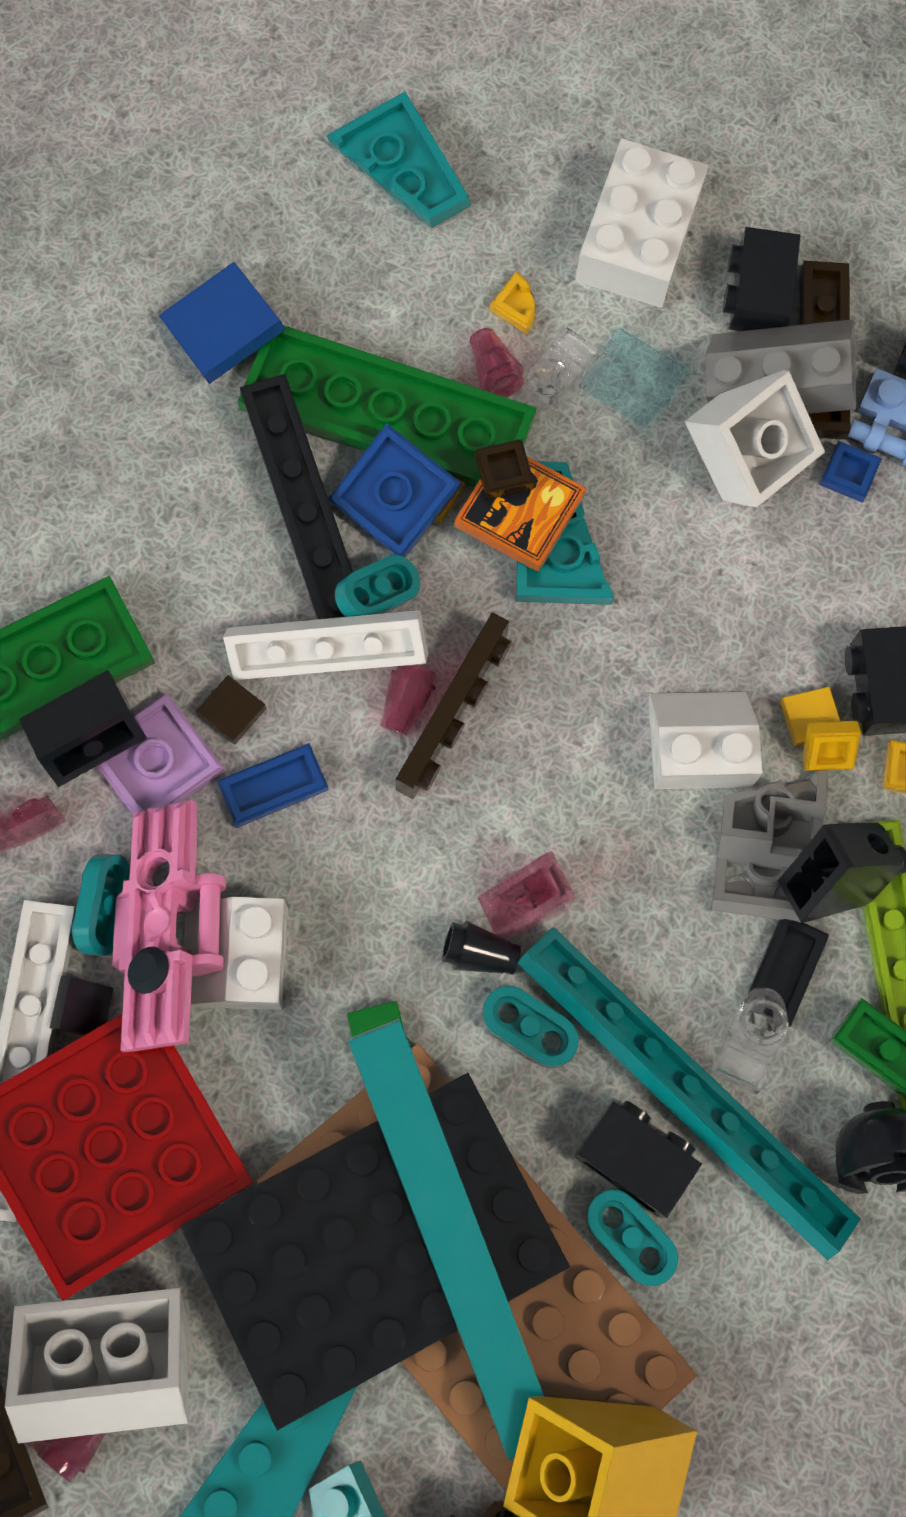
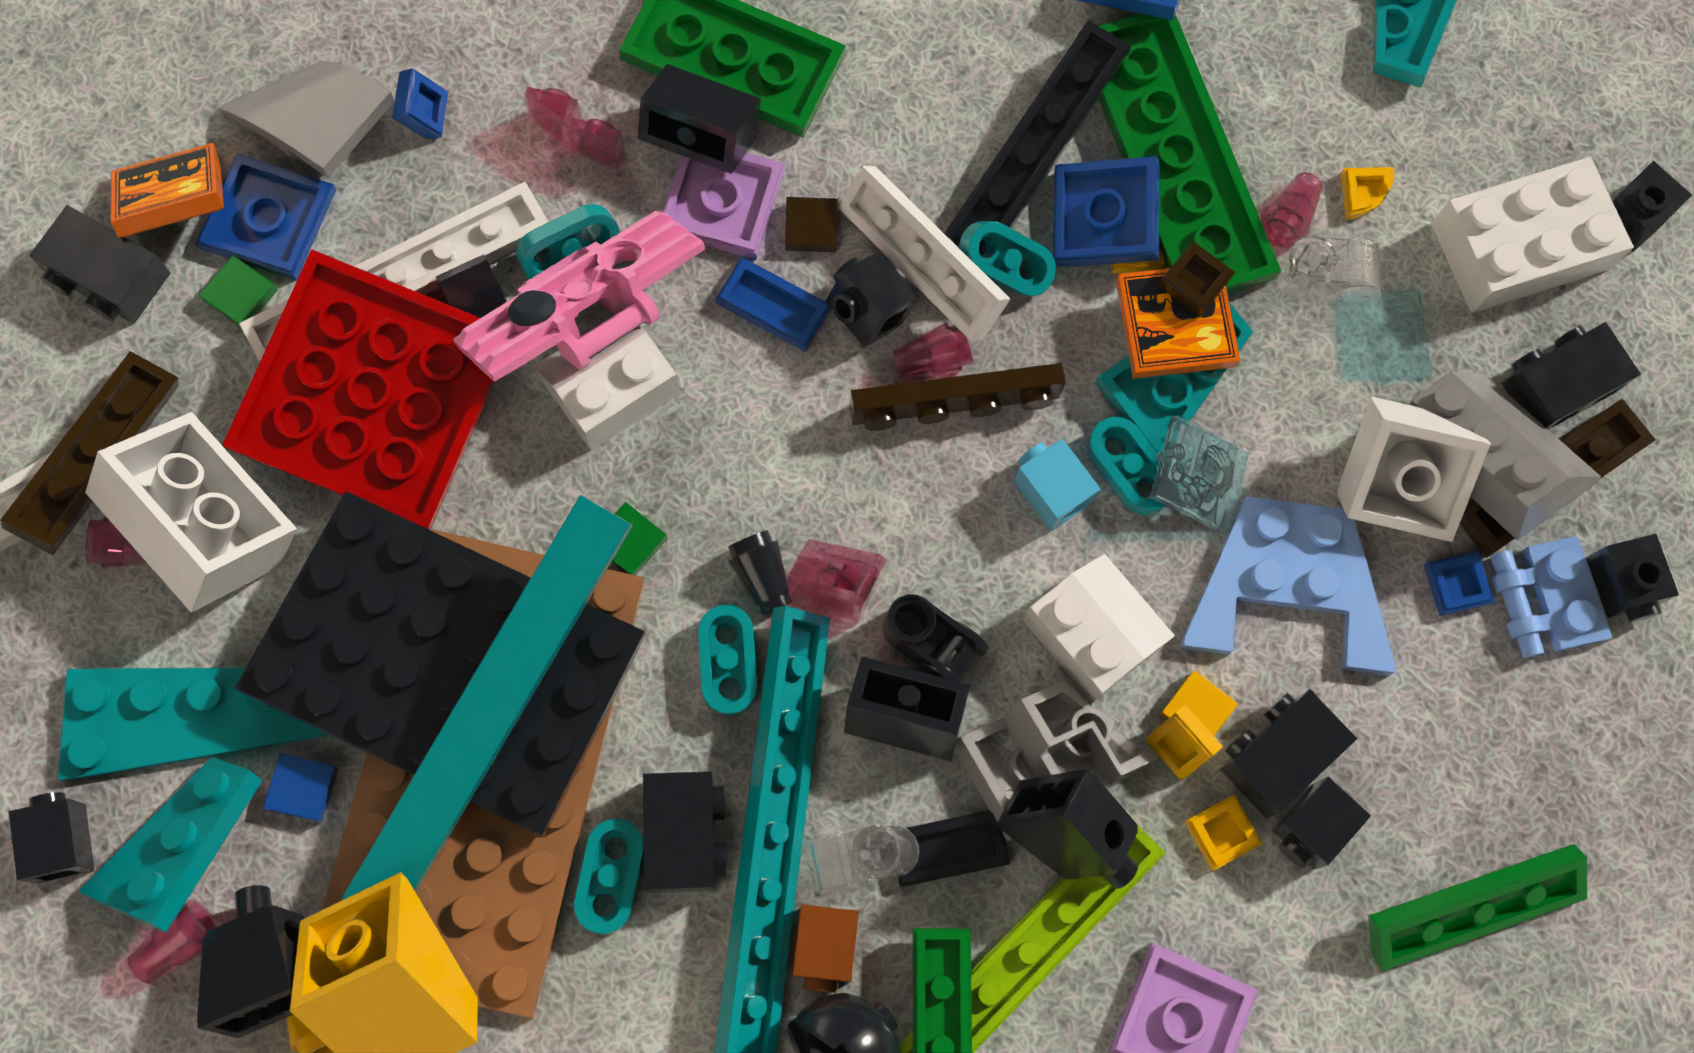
camera: 50 degrees right, 0 degrees up
(328, 710) = (870, 297): none -> black brick
(386, 1433) = (300, 787): none -> blue tile
(574, 687) = (1055, 483): none -> medium azure brick
(599, 623) = (1125, 470): none -> teal plate
(635, 863) = (936, 641): none -> black piece
(644, 582) = (1199, 475): none -> clear light blue piece
(668, 921) = (906, 708): none -> black brick
(678, 128) = (1649, 203): none -> black brick
(752, 566) = (1294, 560): none -> light blue wing
(799, 1114) = (825, 947): none -> dark orange brick

